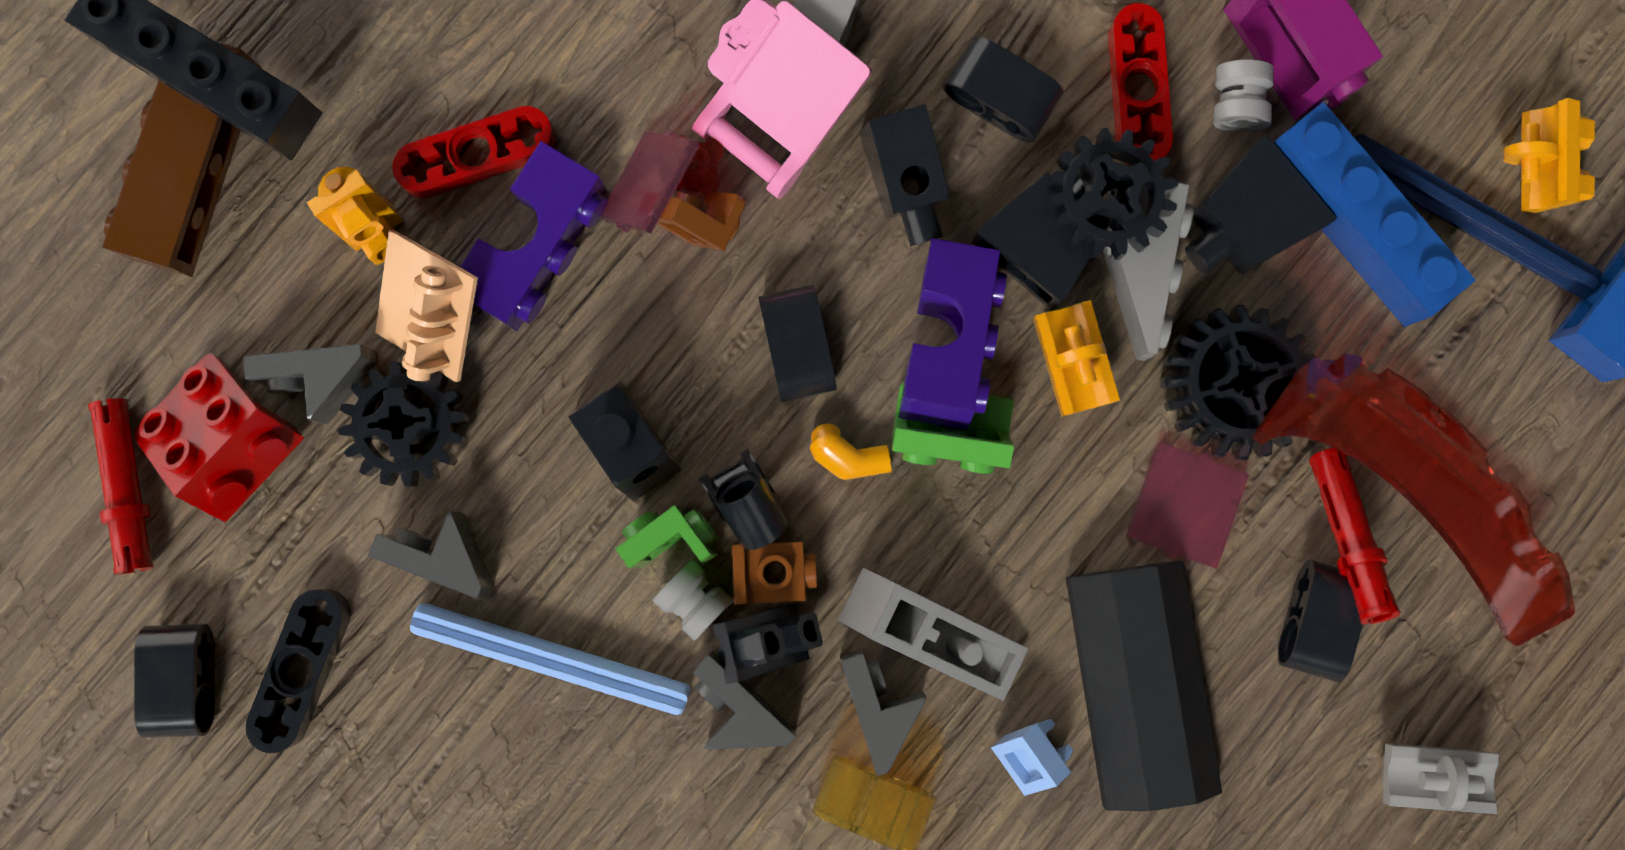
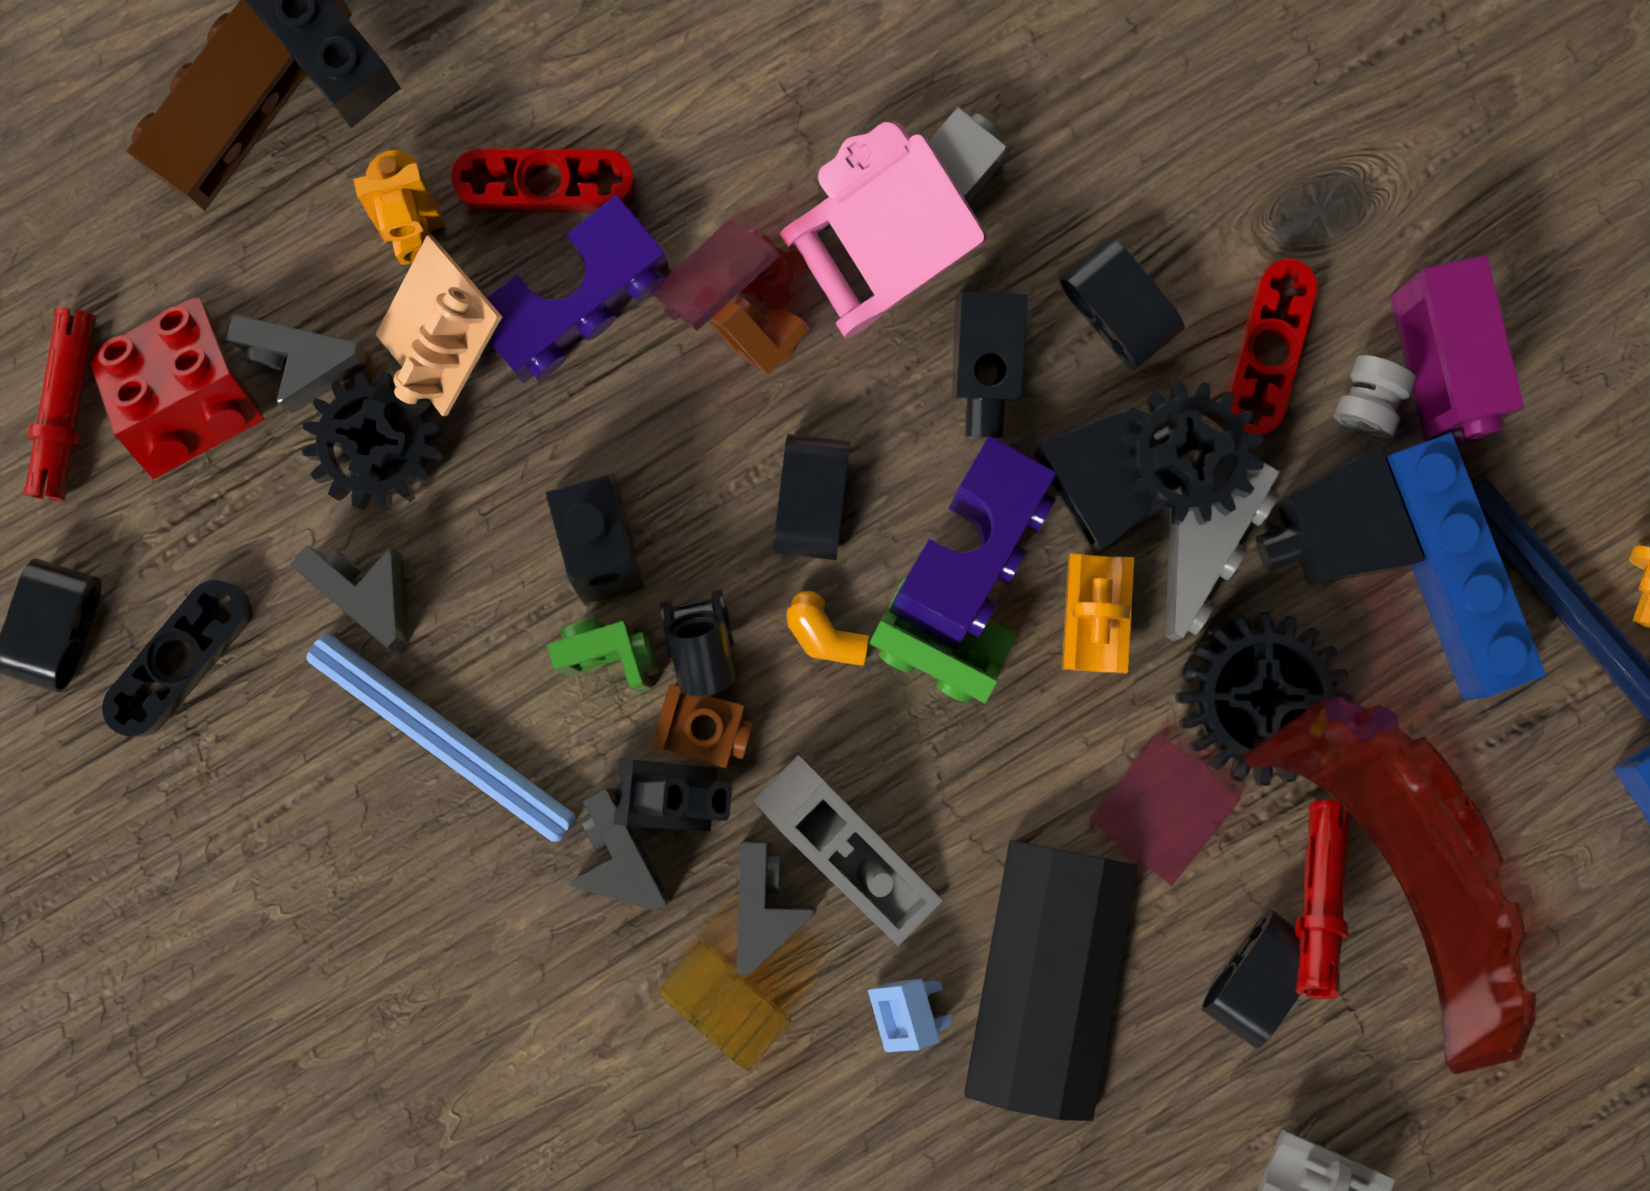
camera: 20 degrees right, 0 degrees up
(693, 599) = (610, 727): light grey wheel -> none

